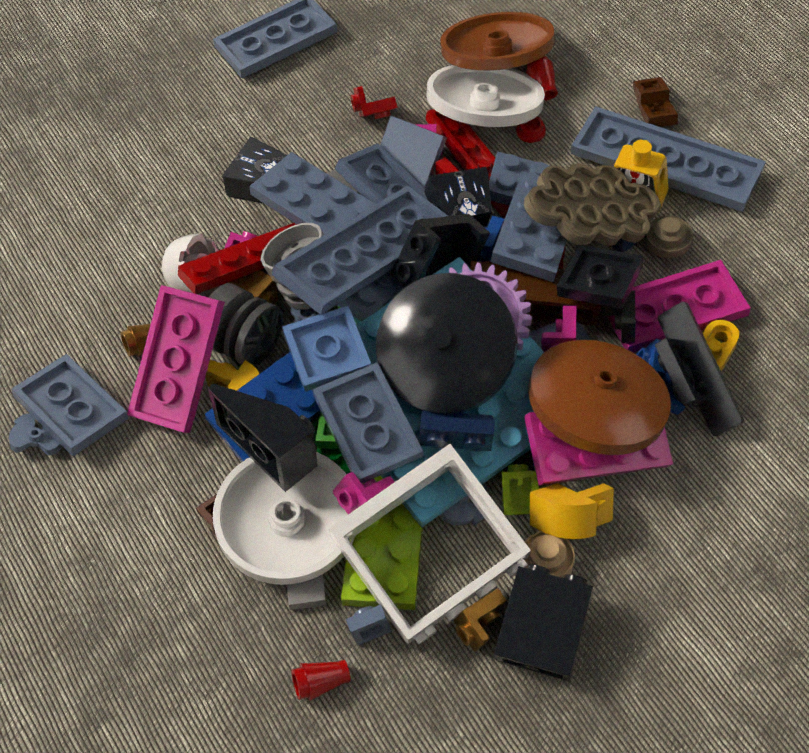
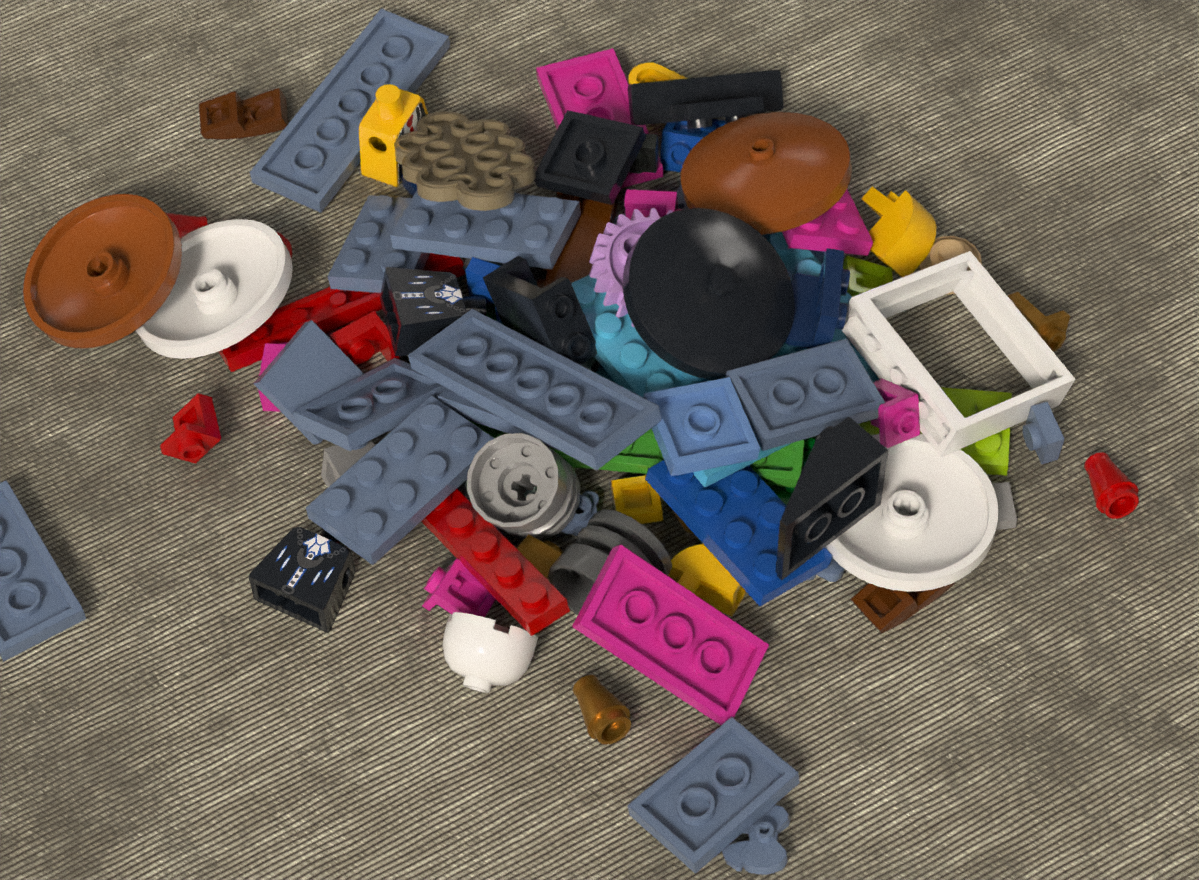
camera: 90 degrees left, 0 degrees up
(544, 622) = (1042, 257): black panel -> none
(669, 237) = (491, 106): dark tan plate -> none

